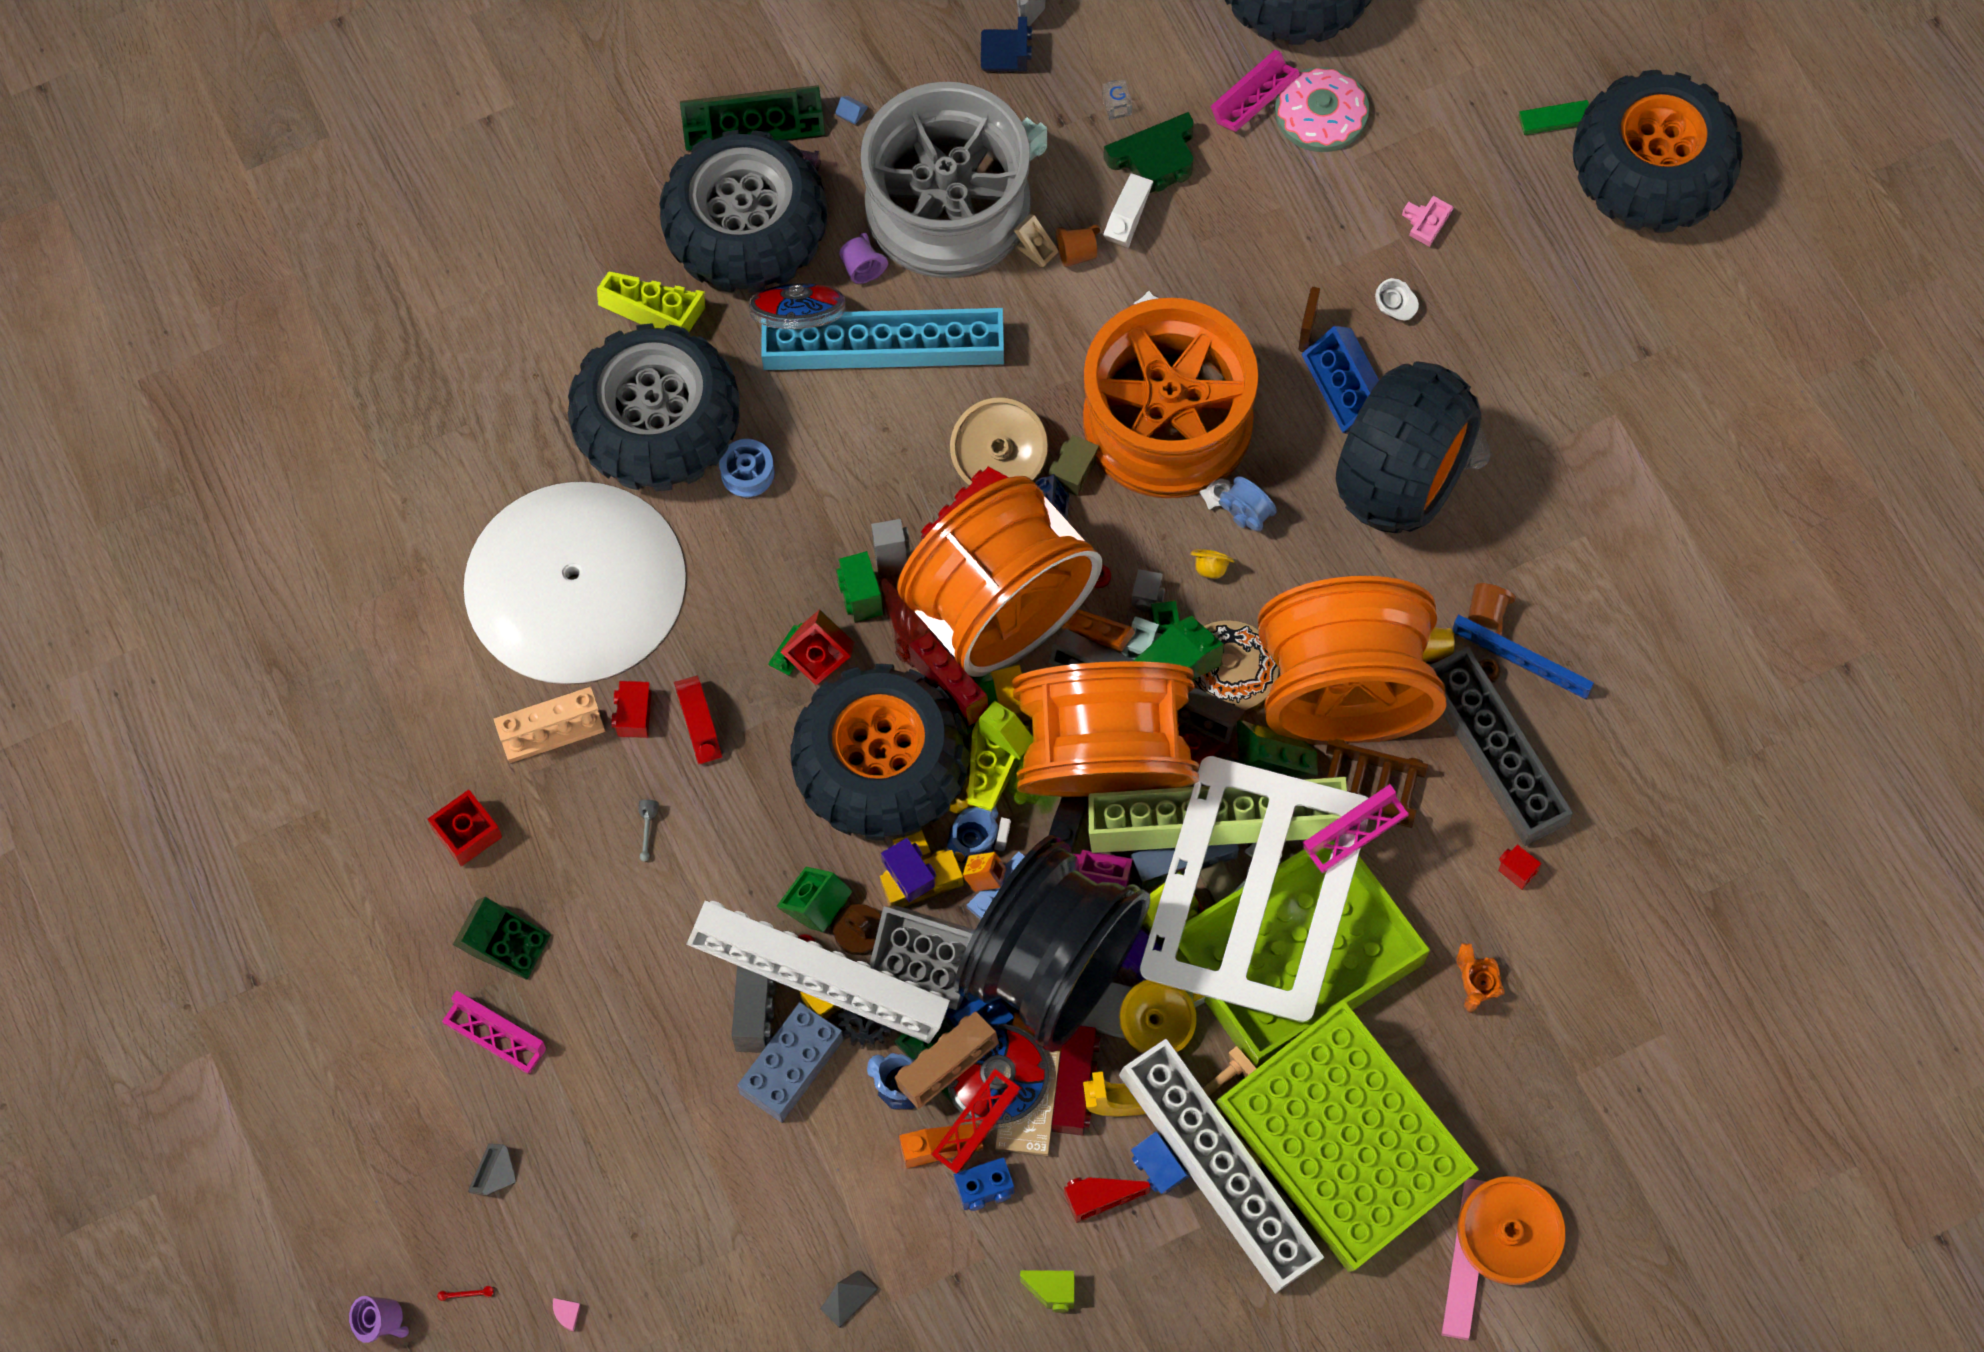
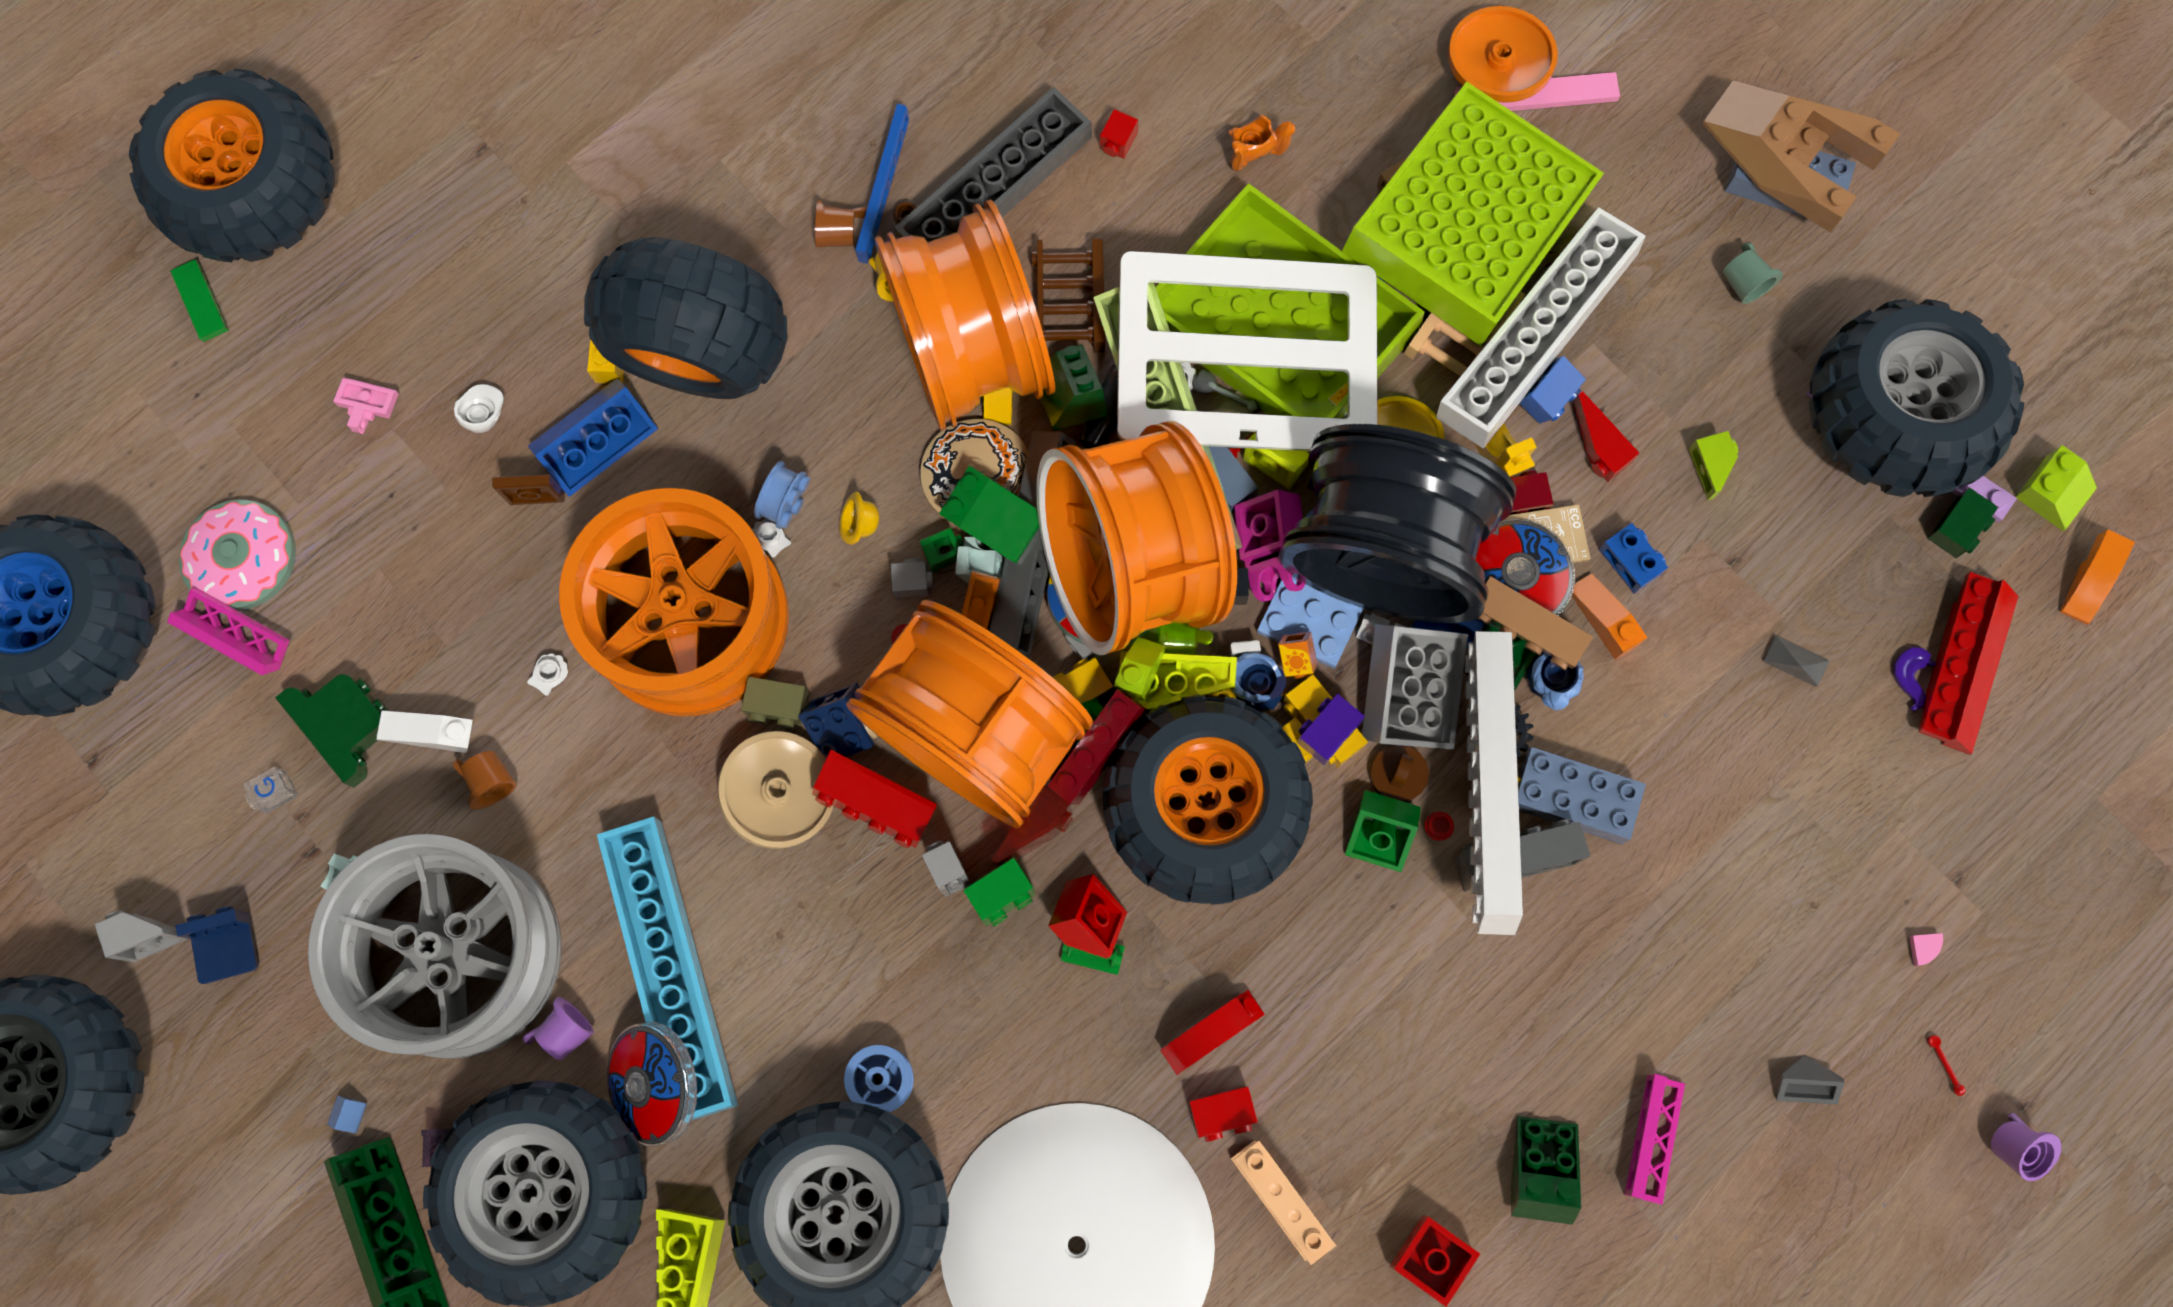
camera: 105 degrees left, 10 degrees up
(648, 810) = (1338, 1052): hinge -> none
(984, 1128) = (1587, 567): red fence -> none
(1035, 241) = (491, 829): tan slope -> none
(1348, 821) = (1159, 264): dark pink fence -> none

